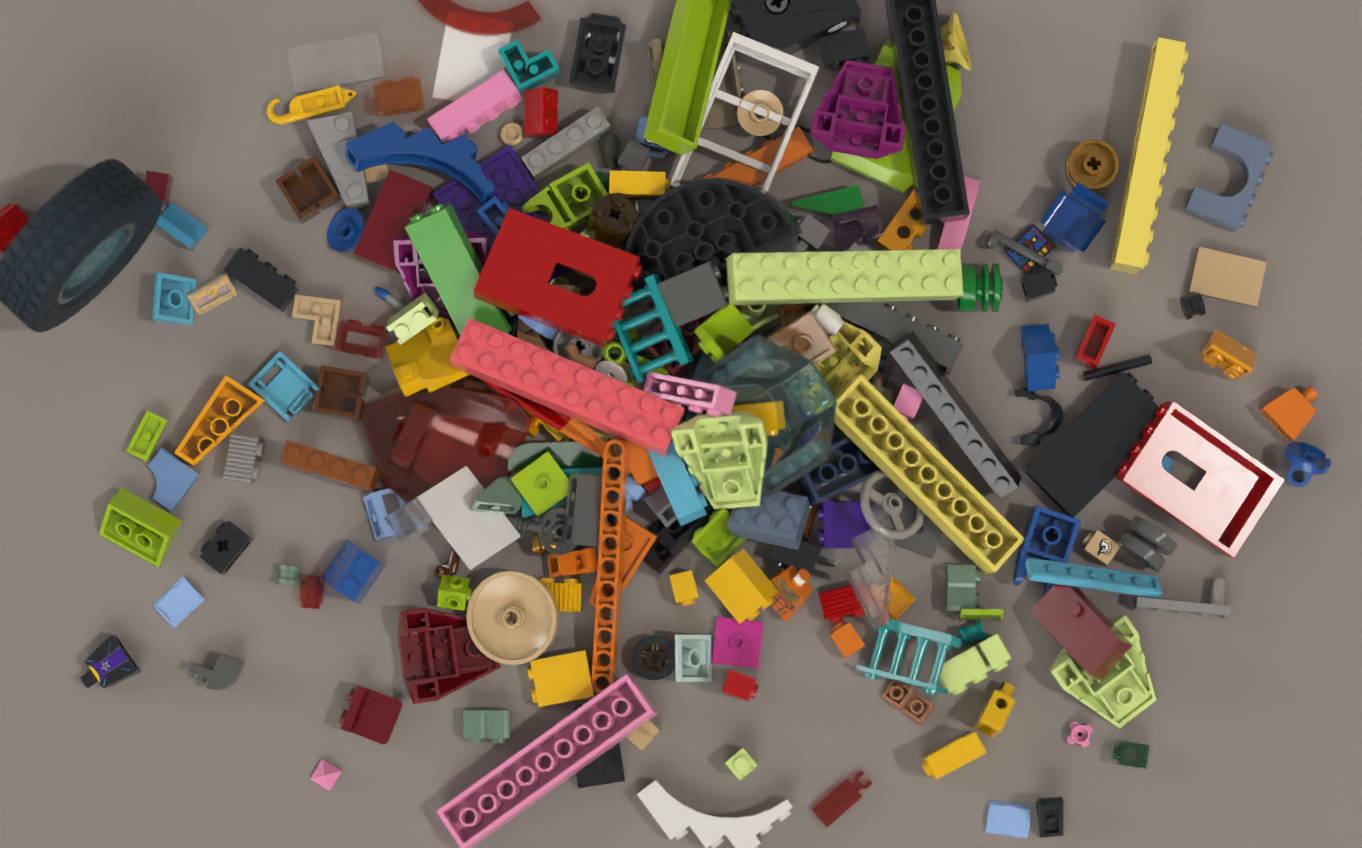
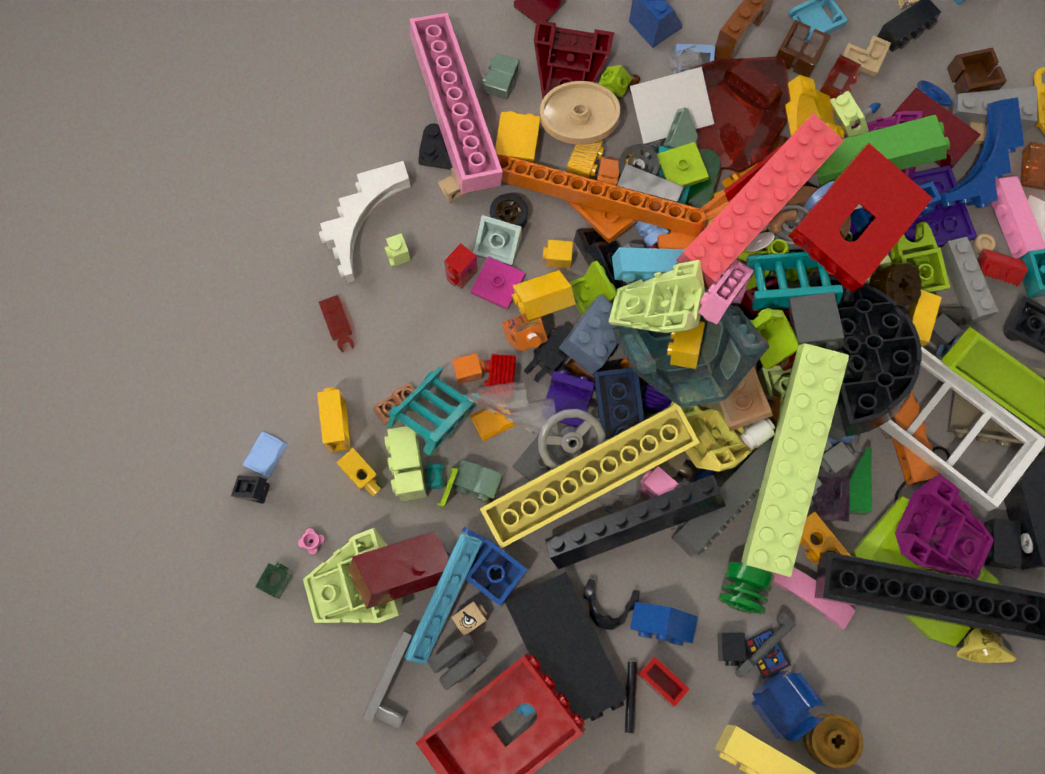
camera: 100 degrees right, 10 degrees down
(749, 120) = (956, 434): tan dish -> none

